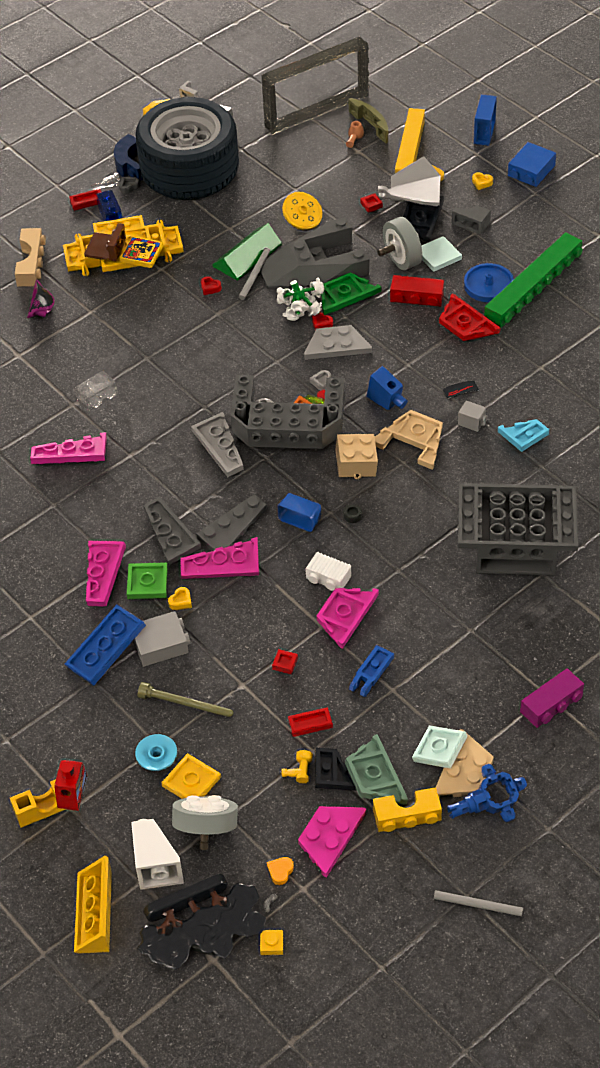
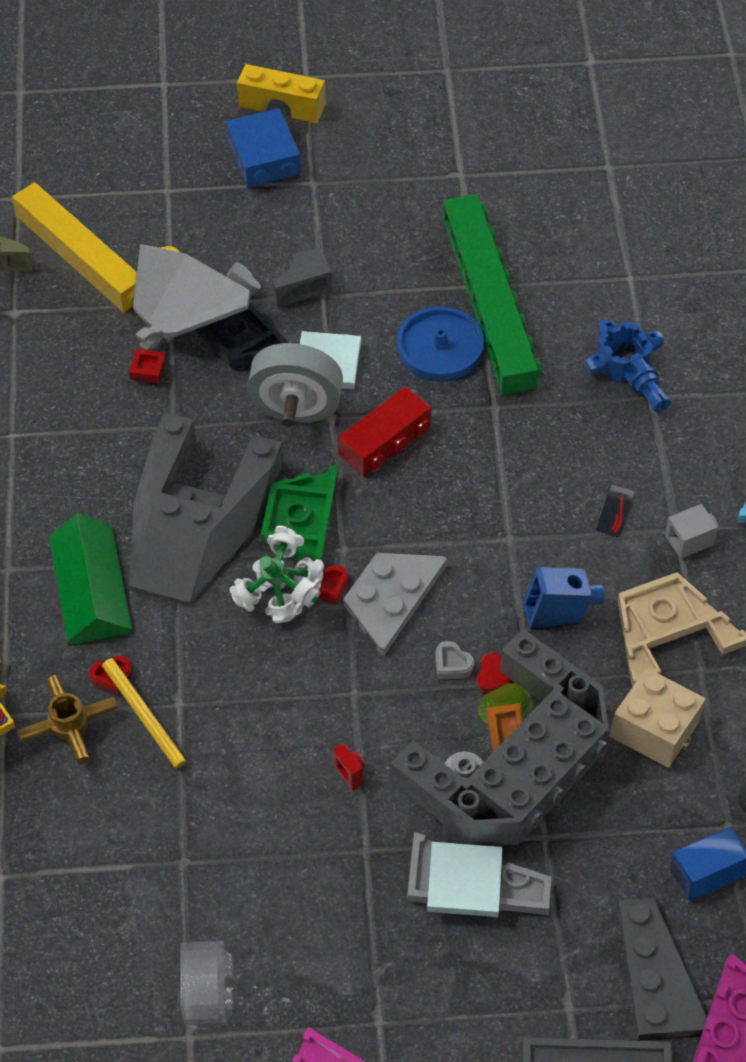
camera: 55 degrees left, 5 degrees up
(174, 283) = (70, 728): none -> pearl gold bar
(199, 304) = (144, 713): none -> yellow bar
(213, 437) = (464, 879): none -> light aqua tile
(235, 370) = (348, 765): none -> red plate
(254, 273) = (148, 601): light grey bar -> none
(302, 211) = (82, 456): yellow shield -> none
(450, 201) = (244, 277): none -> light grey tile
(466, 321) = (493, 417): red wing -> none
(482, 181) = (230, 220): yellow tile -> none
(485, 120) = (130, 134): blue window -> none
(544, 349) = (637, 369): none -> blue piece
(565, 143) = (301, 93): none -> yellow arch

